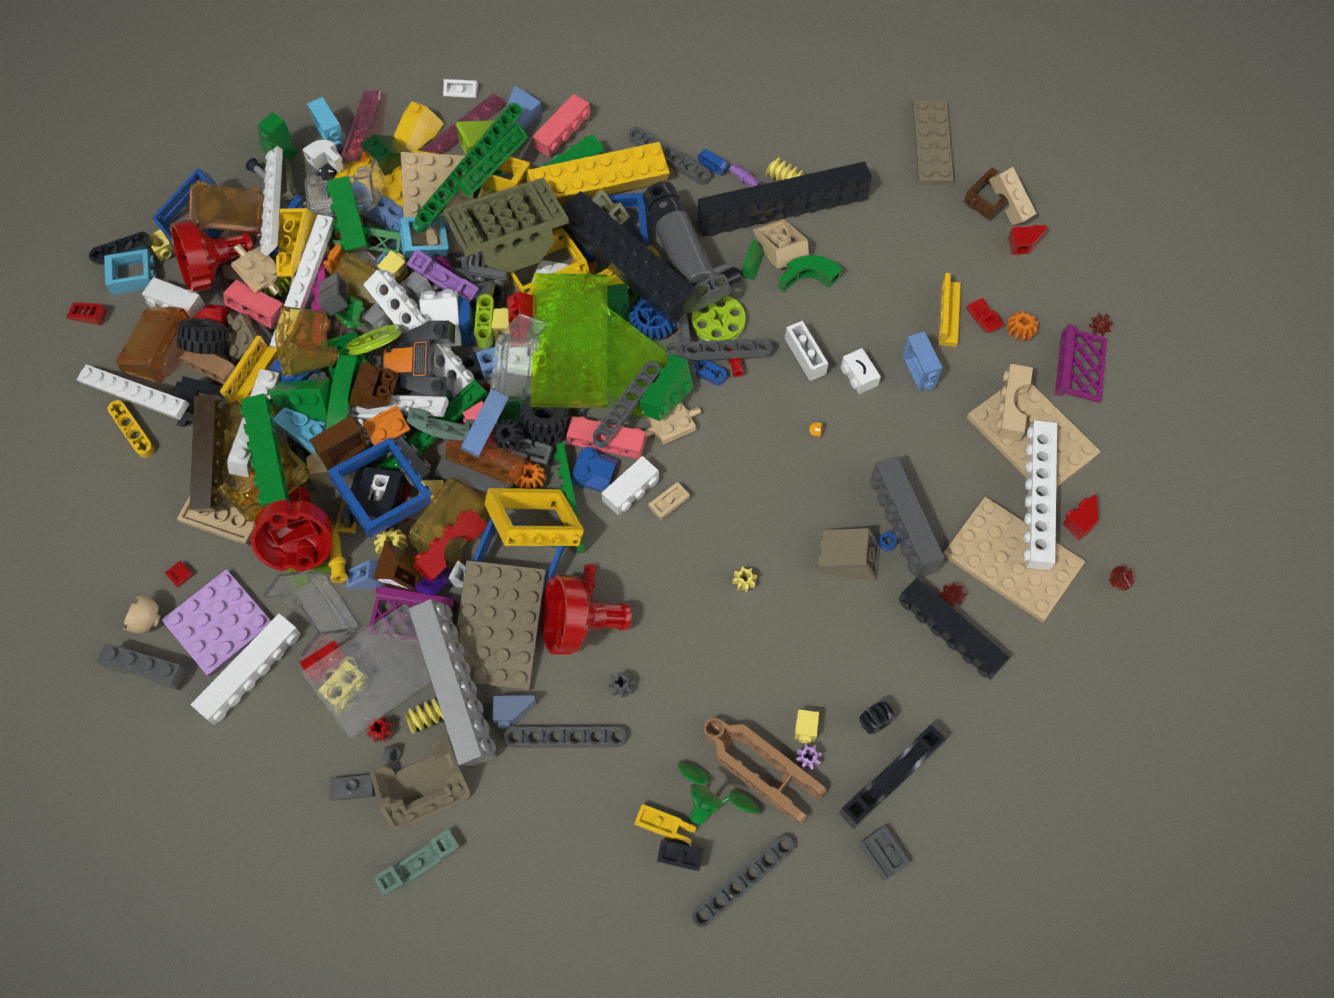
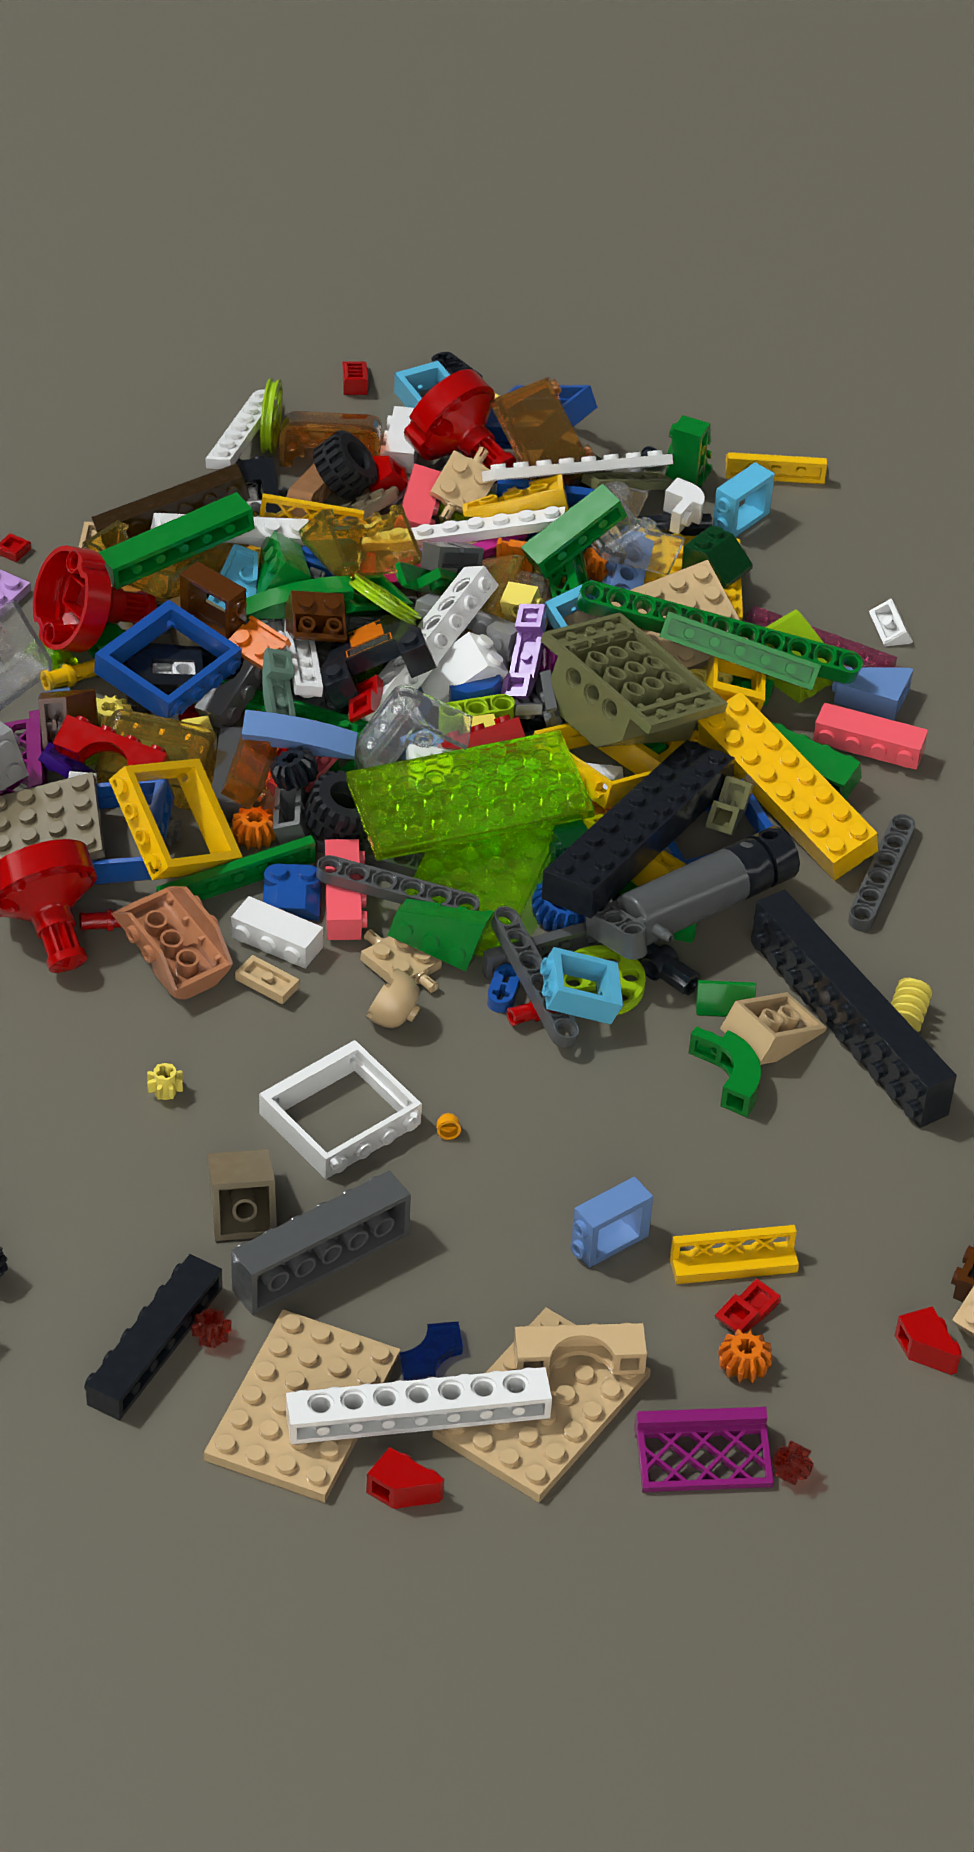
camera: 70 degrees right, 20 degrees down
(124, 367) = (271, 416): none -> lime wedge
(130, 429) = (183, 471): yellow beam -> none
(295, 97) = (785, 467): none -> yellow fence
(361, 125) = (770, 534): clear pink plate -> none
(417, 126) = (786, 590): yellow wedge -> none
(461, 378) = (368, 699): none -> red slope
(625, 545) = (177, 940): none -> nougat slope
(712, 162) = (891, 920): blue beam -> none
(715, 432) = (395, 1001): none -> tan cylinder
(741, 315) = (597, 1007): none -> medium azure window
(744, 175) = (885, 964): medium lavender pin -> none
(806, 350) = (577, 1082): white brick -> none
(817, 465) = (319, 1076): none -> white window
(860, 371) = (571, 1158): white brick -> none
(992, 487) = (439, 1344): none -> clear blue tile
(1122, 578) = (306, 1542): clear red gear -> none

